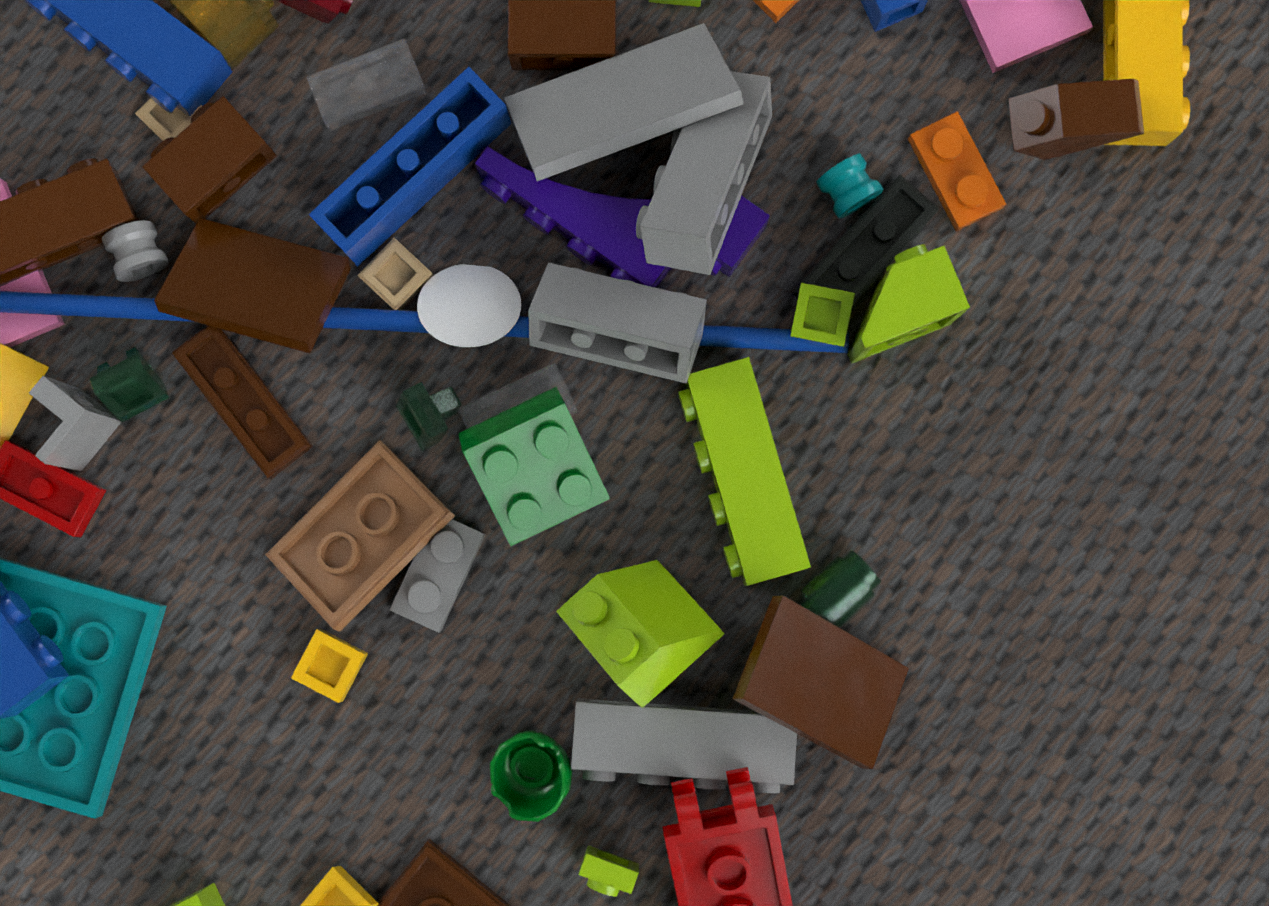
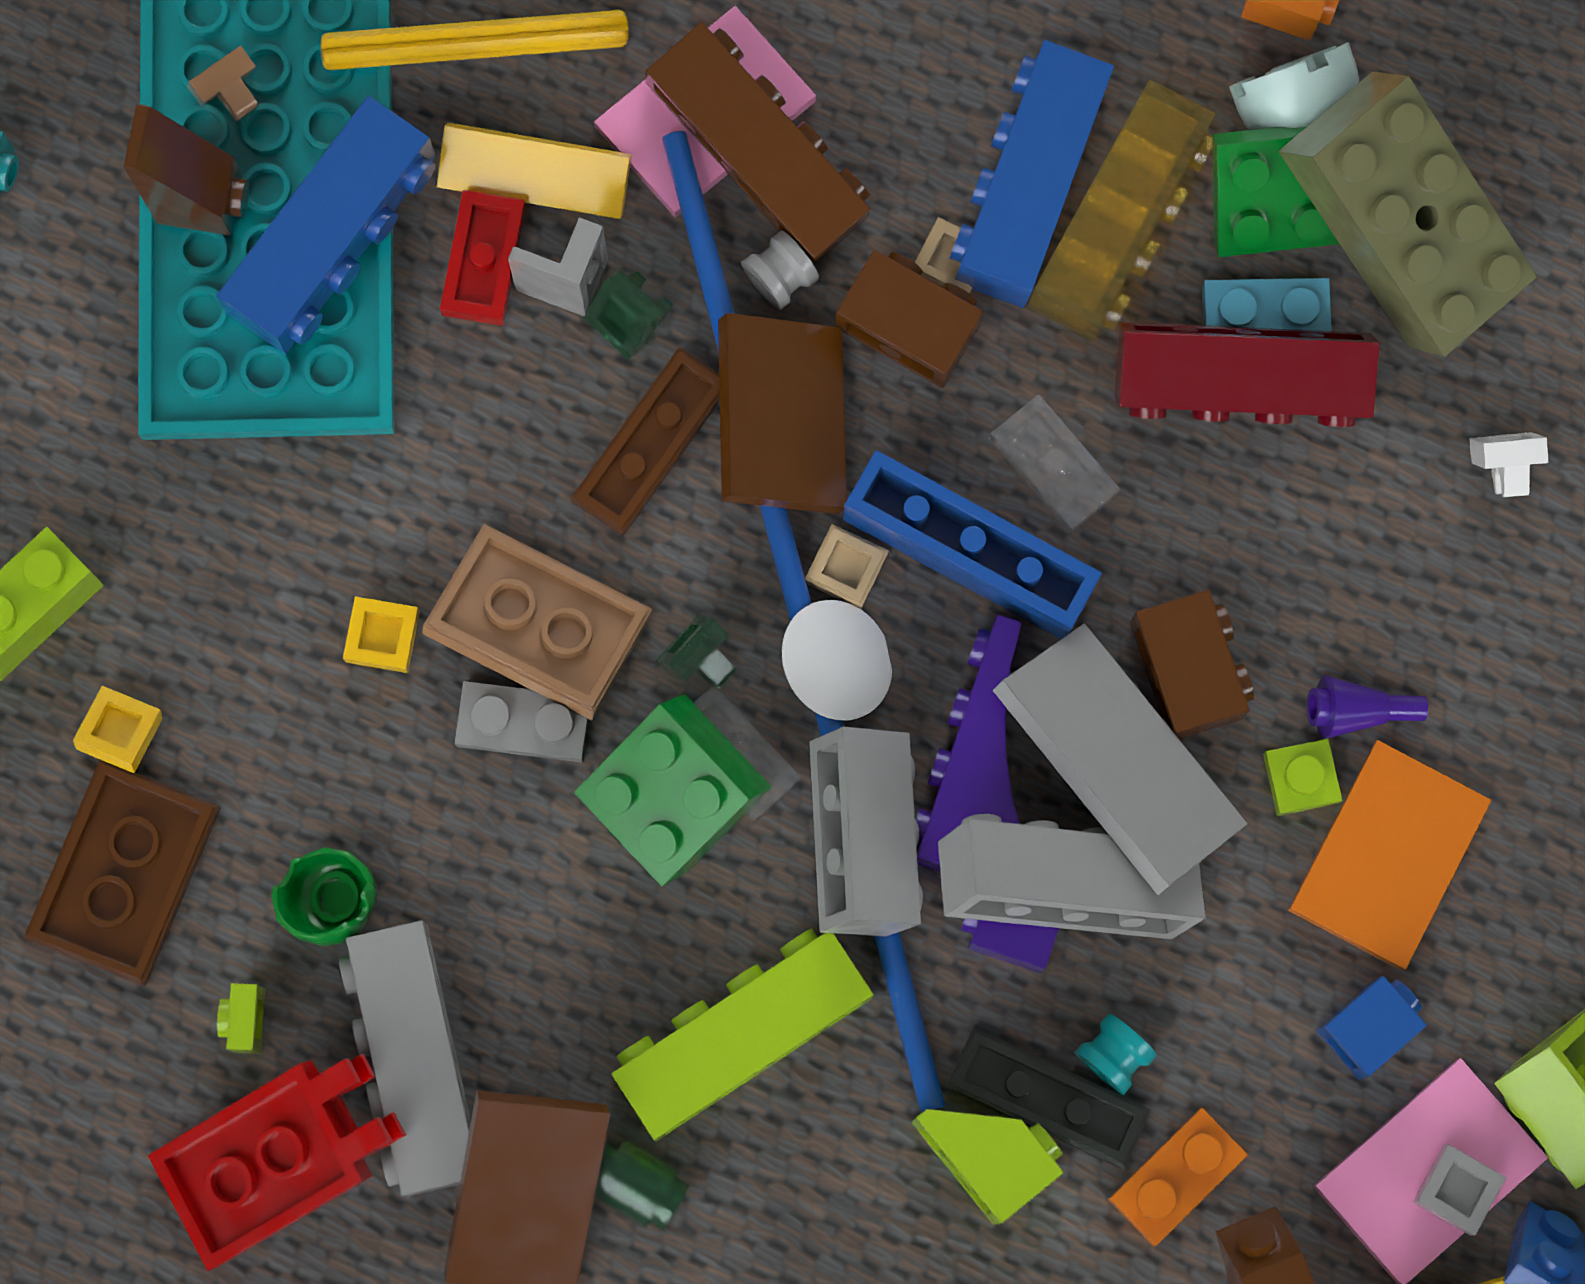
camera: 65 degrees right, 5 degrees down
(640, 627) = (527, 966): lime slope -> none
(822, 314) = (951, 1066): lime plate -> none

